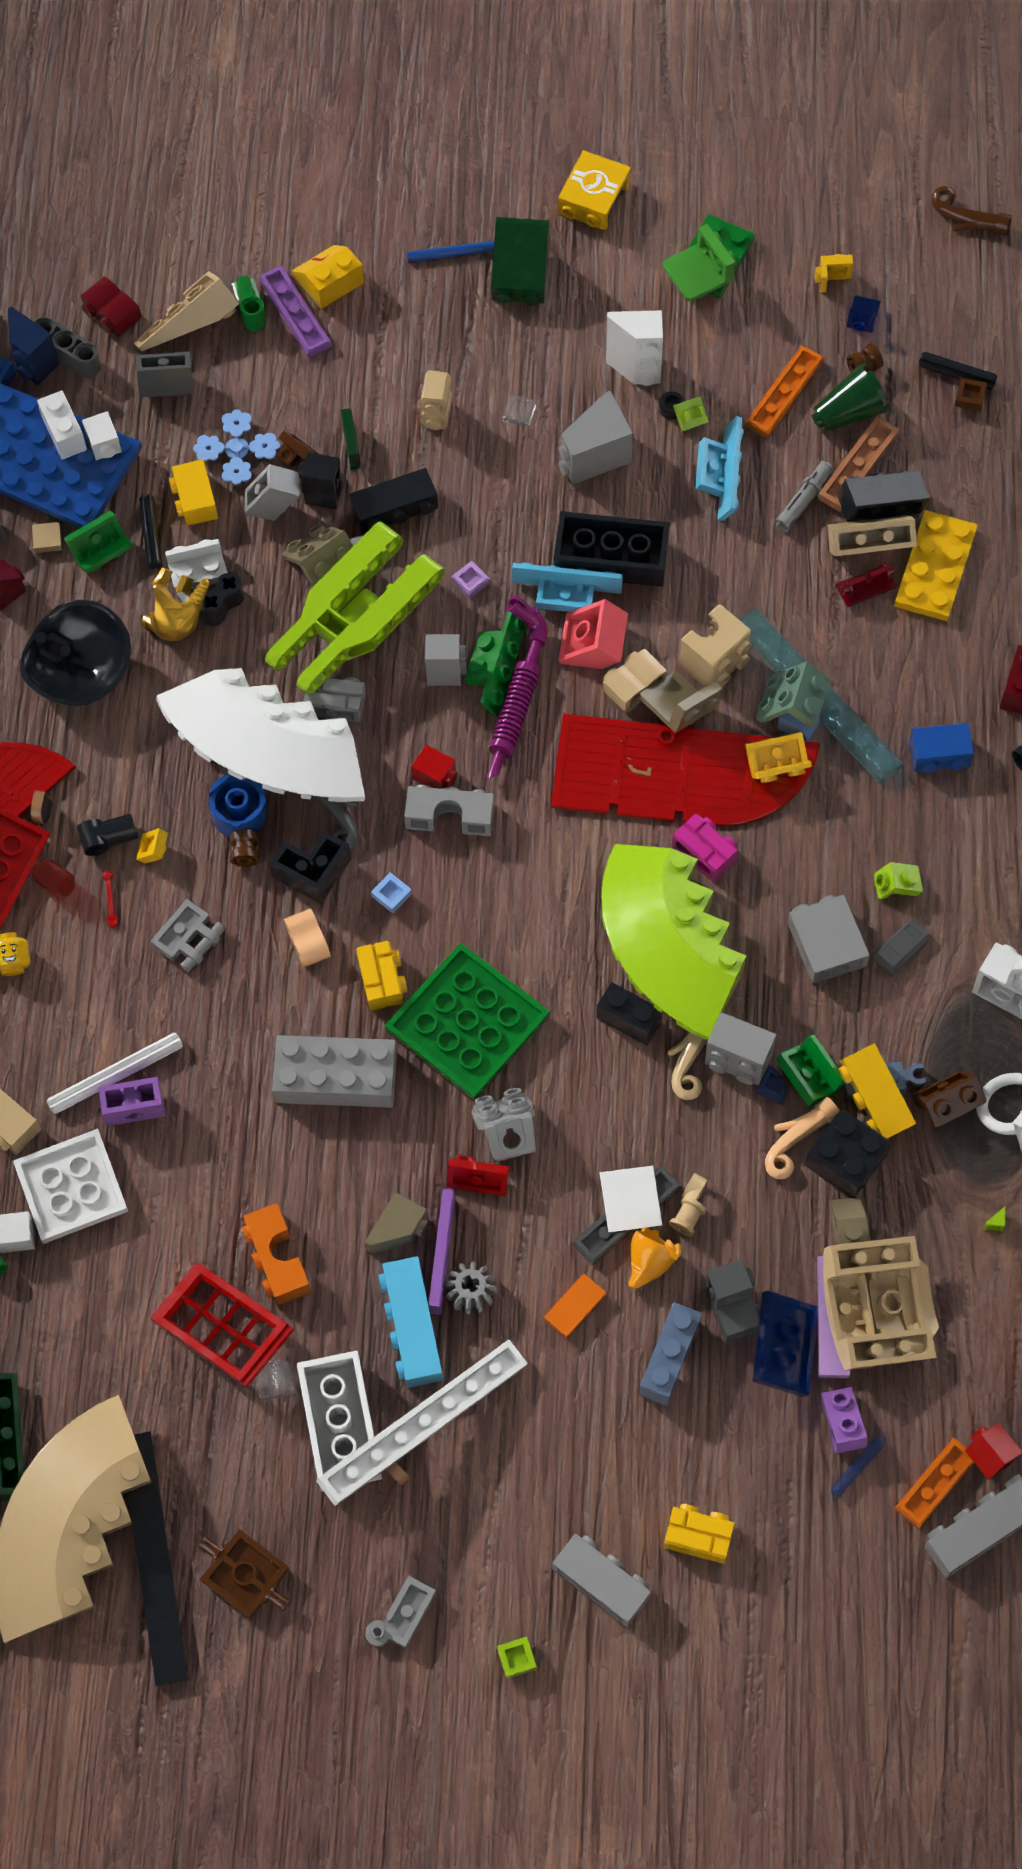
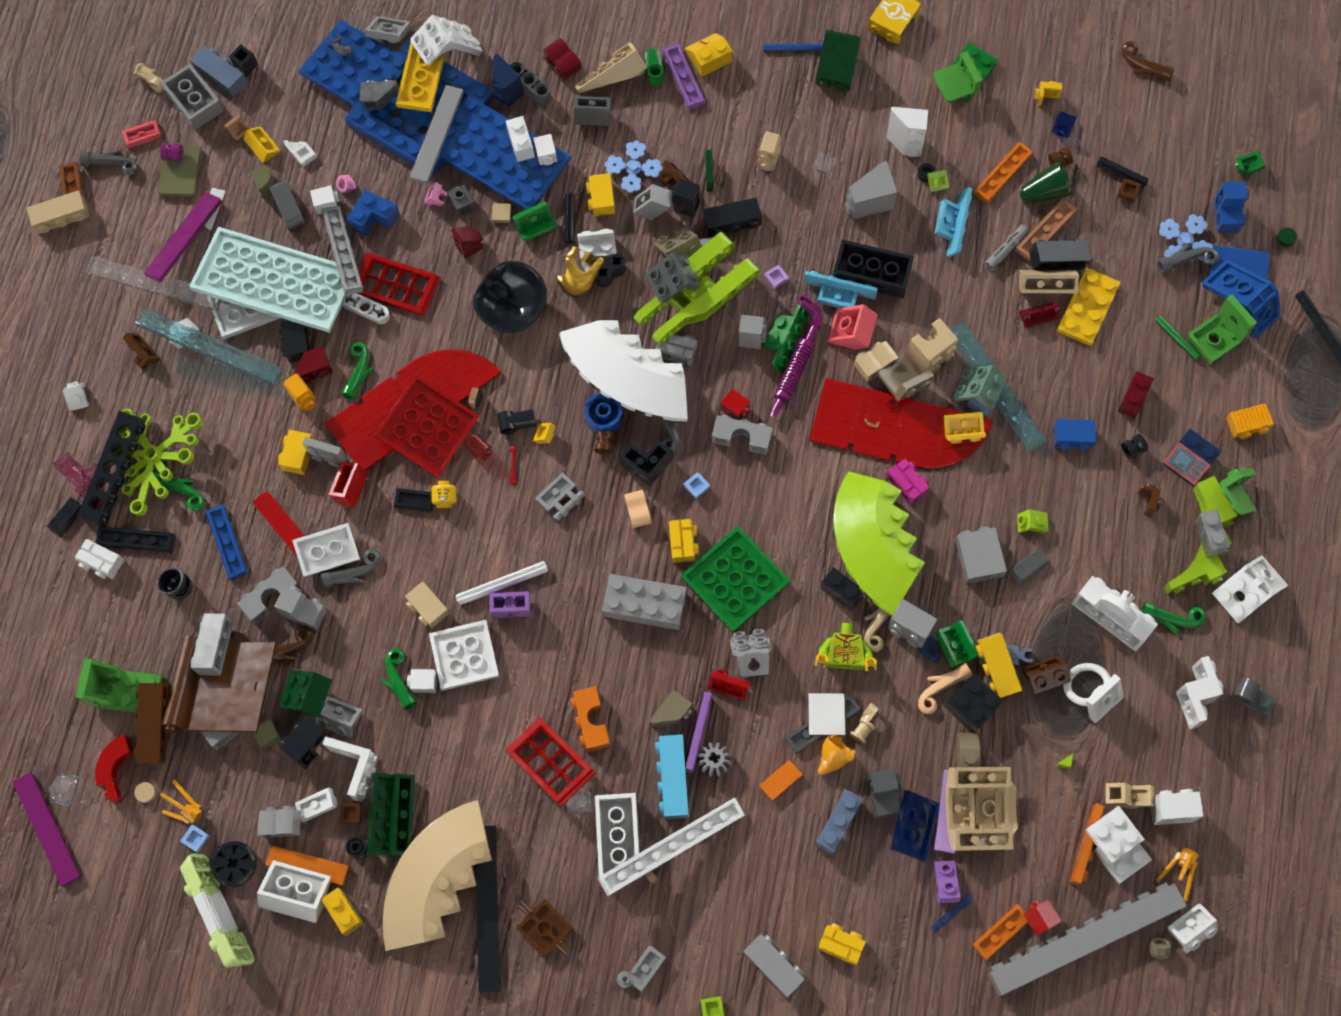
camera: 10 degrees right, 5 degrees up
(314, 592) = (672, 276): none -> dark grey bracket
(647, 1103) = (846, 651): none -> lime torso

